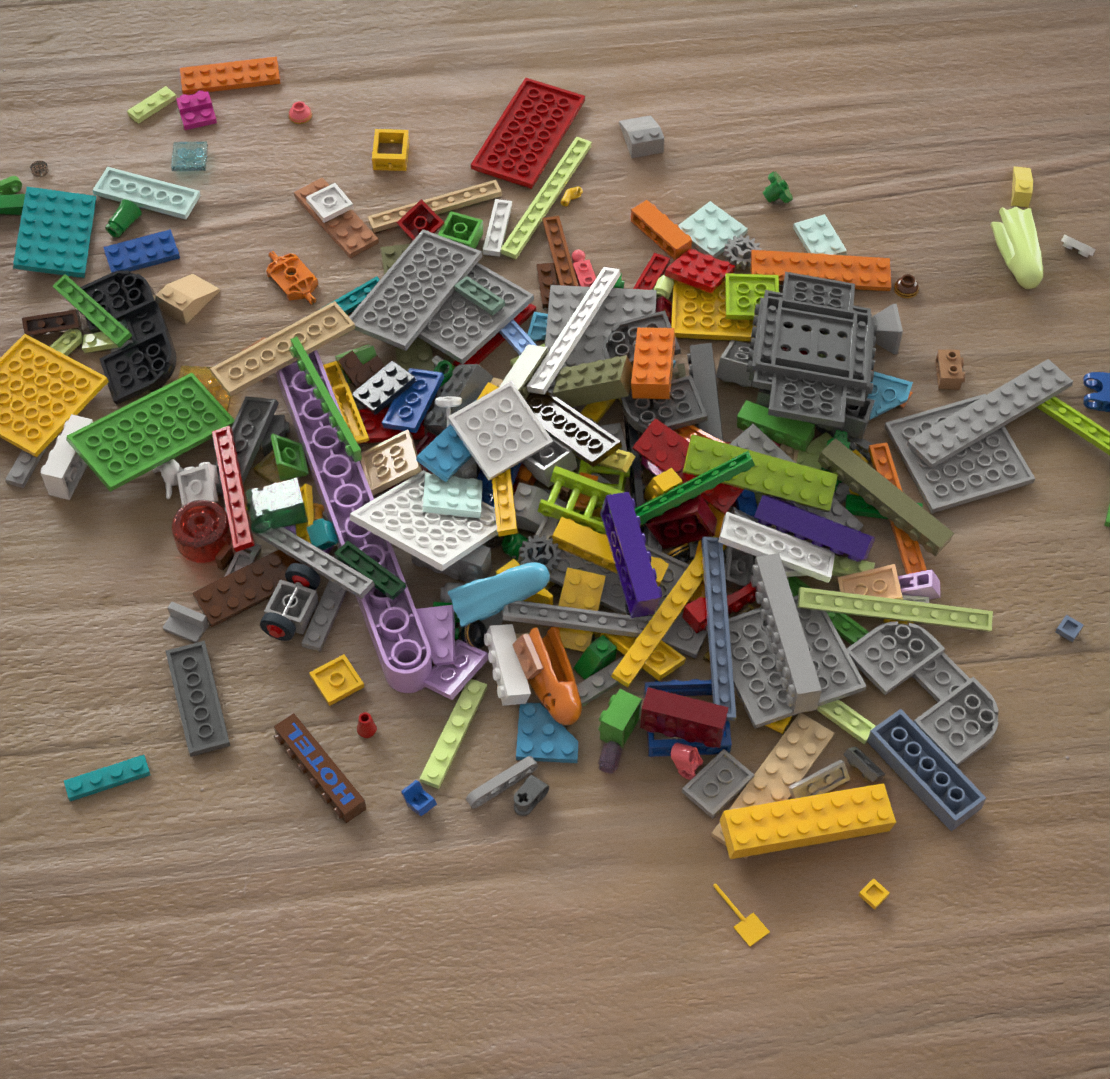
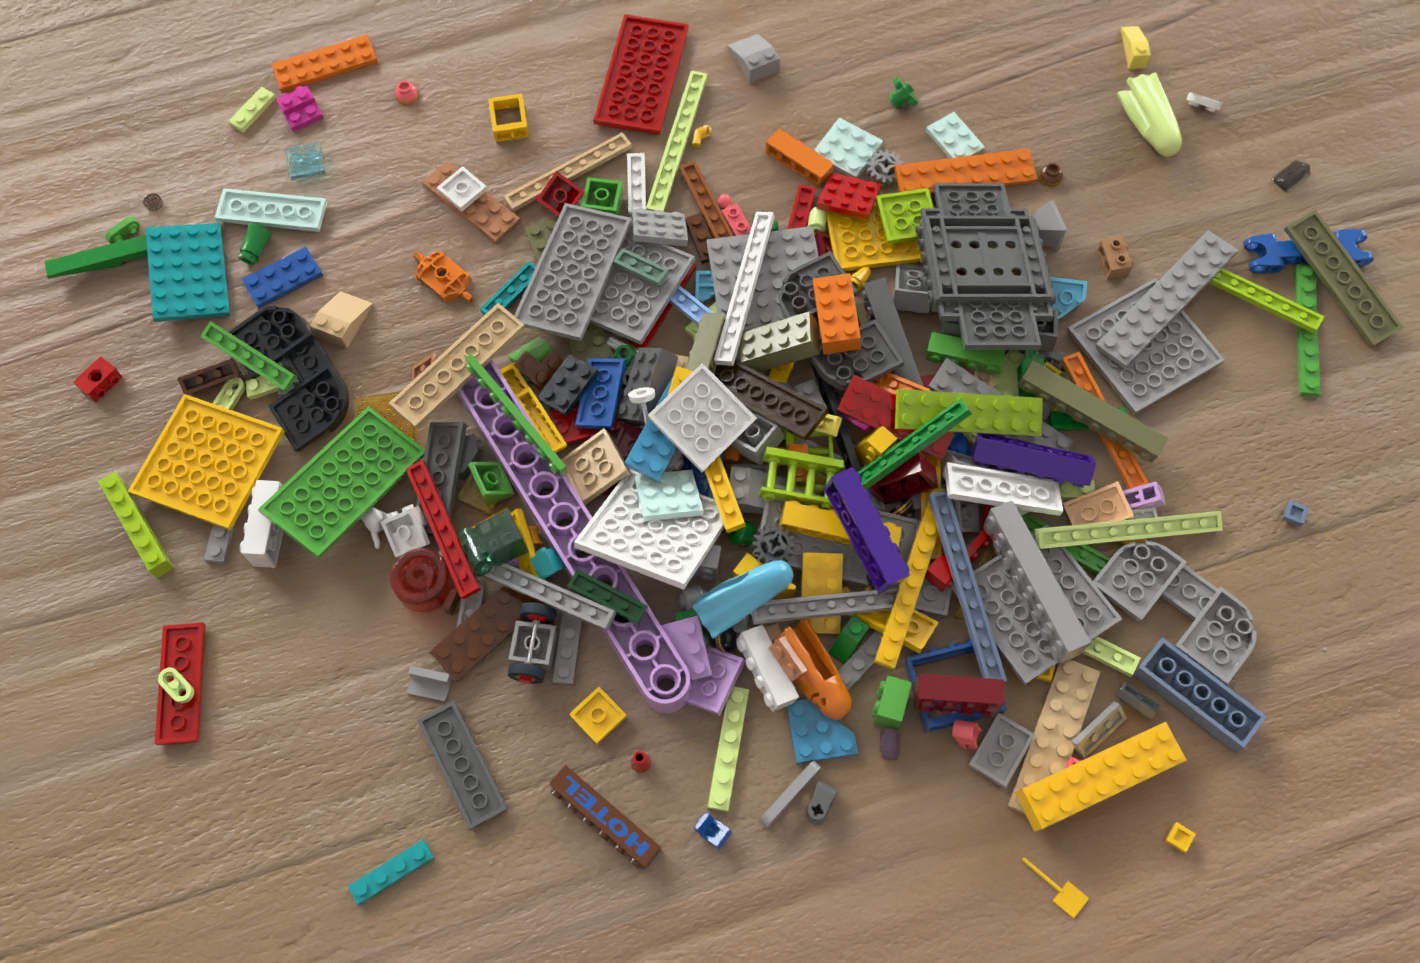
camera: 10 degrees left, 10 degrees up
(507, 266) = (659, 227): none -> light grey plate
(685, 345) = (860, 278): none -> yellow cone

